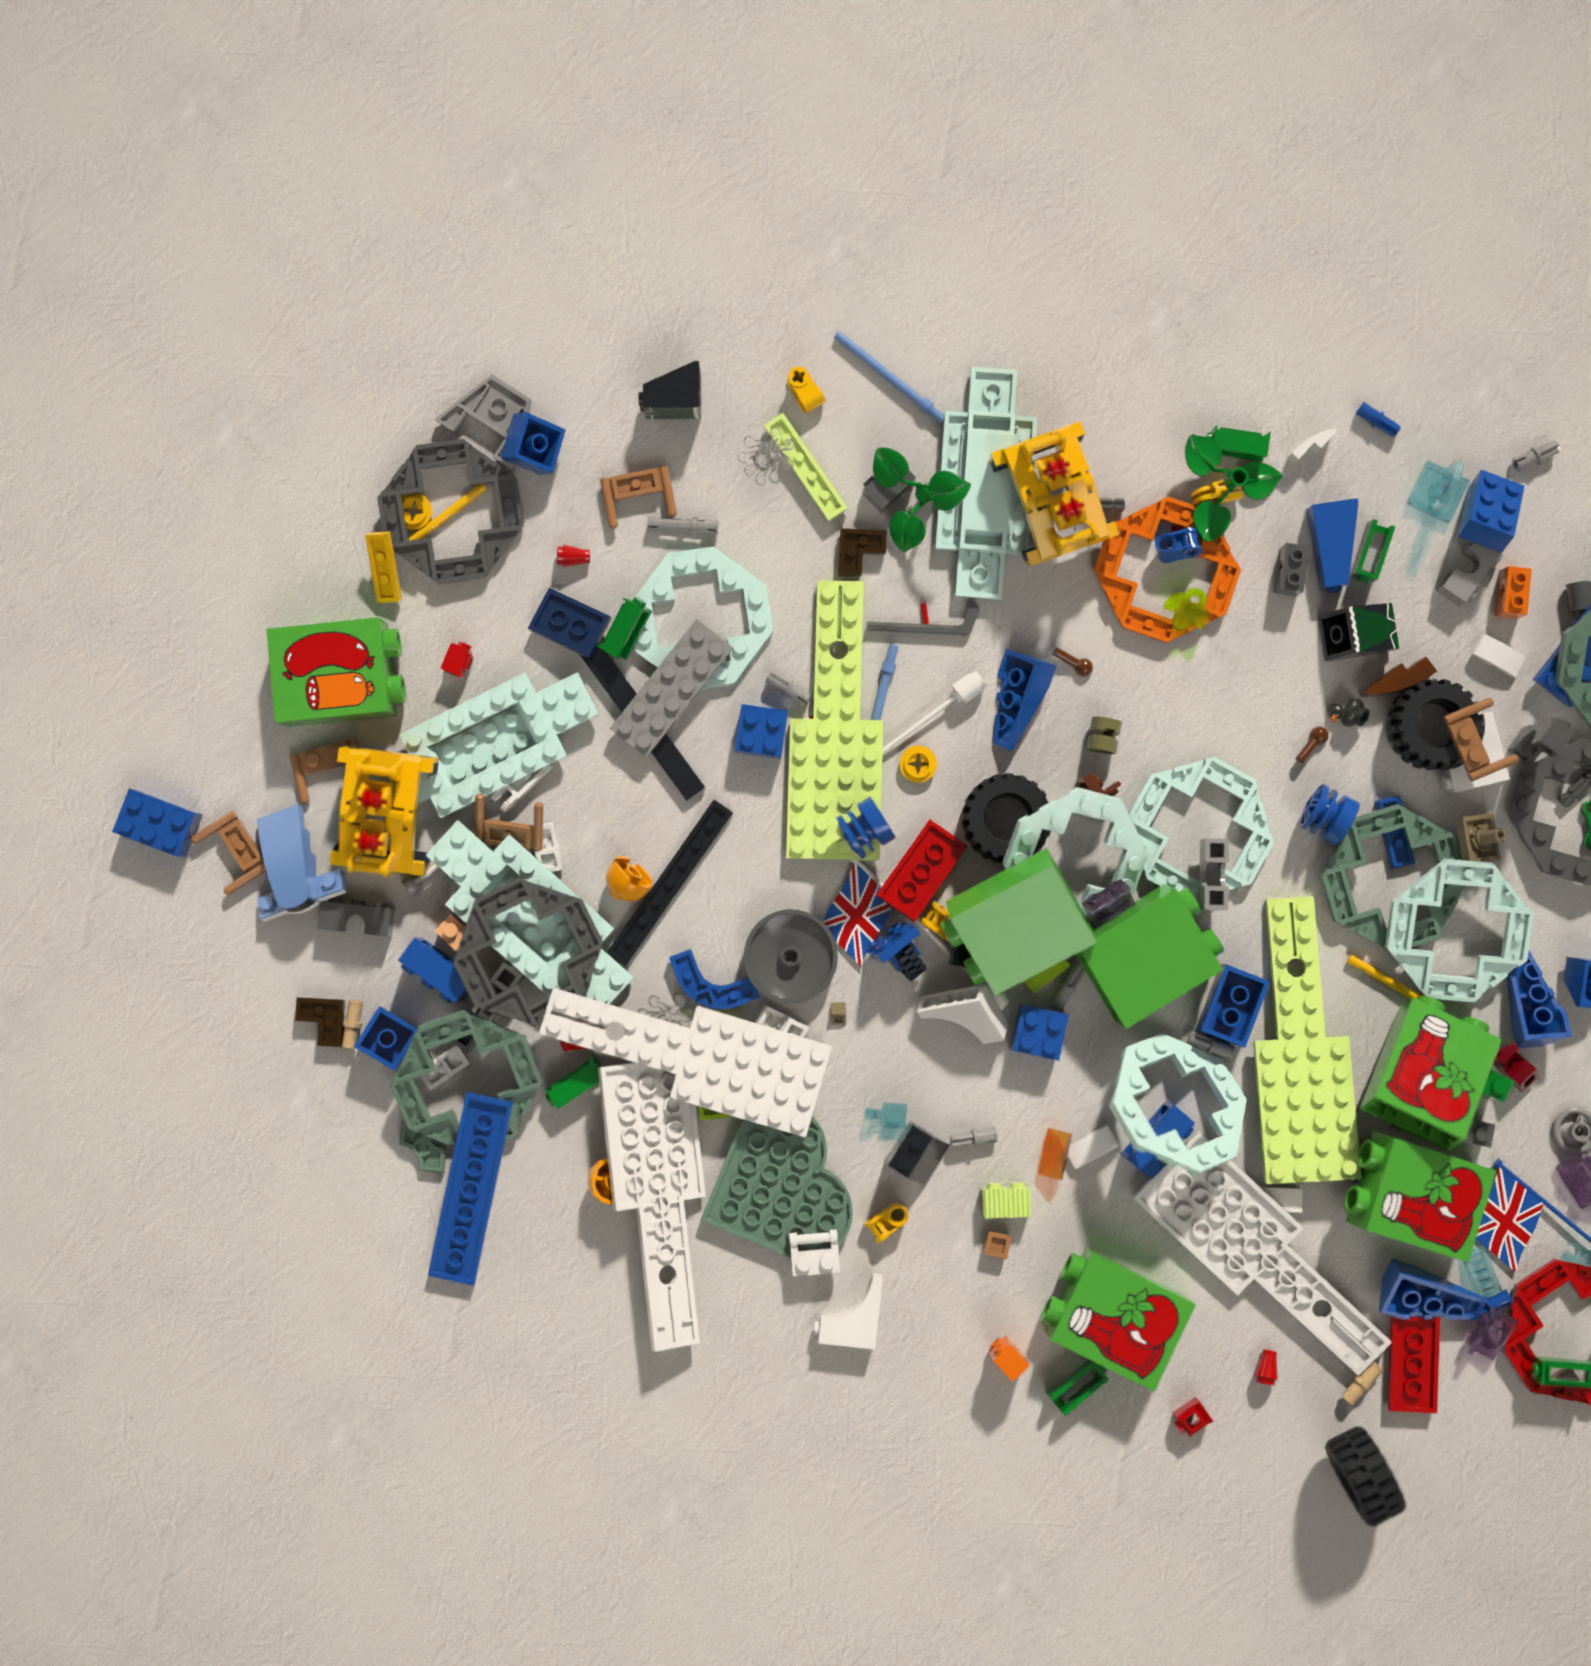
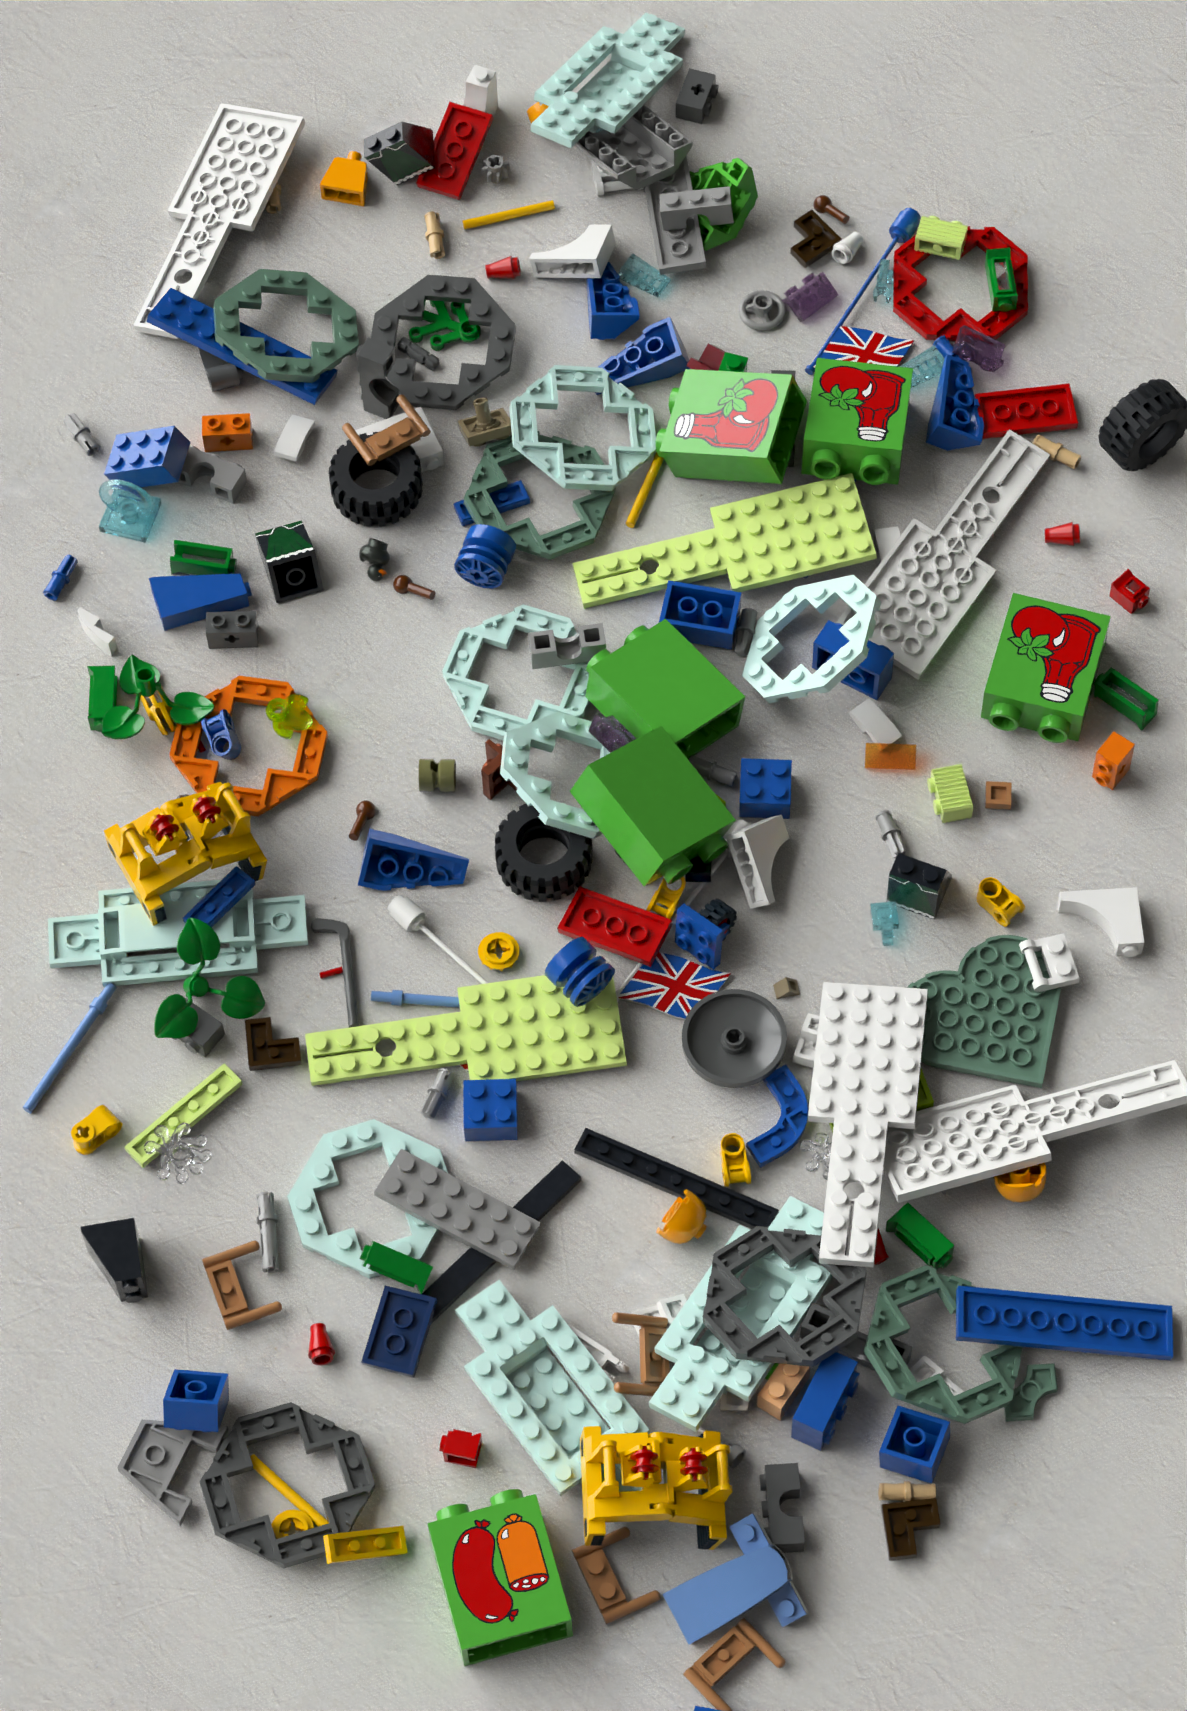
camera: 95 degrees left, 25 degrees down
(673, 935) = (734, 1165): none -> yellow piece
(1001, 520) = (222, 897): none -> blue tile
(1400, 678) = (331, 518): reddish brown slope -> none

